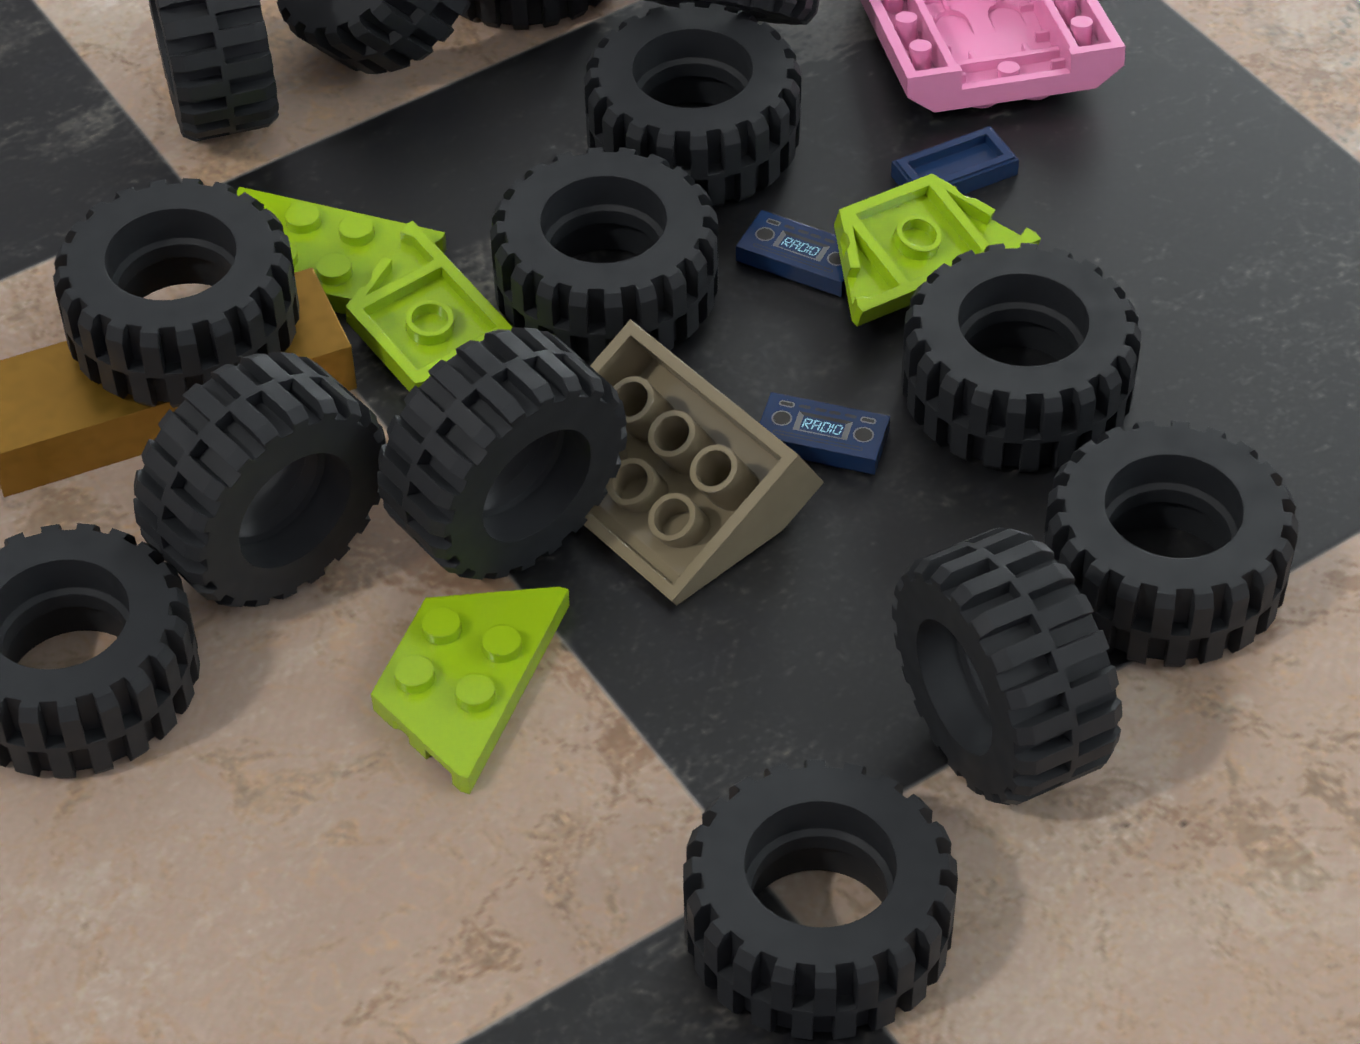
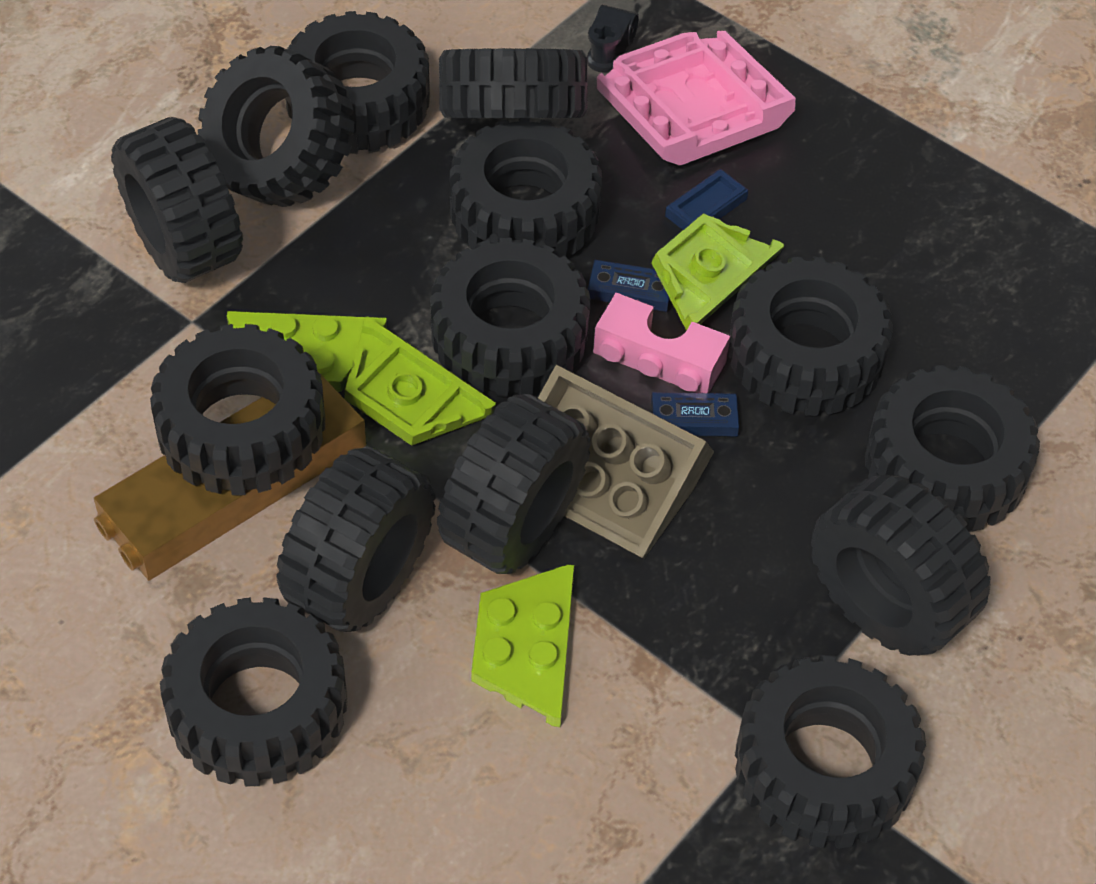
camera: 20 degrees left, 5 degrees up
(838, 360) = (685, 361): none -> bright pink arch

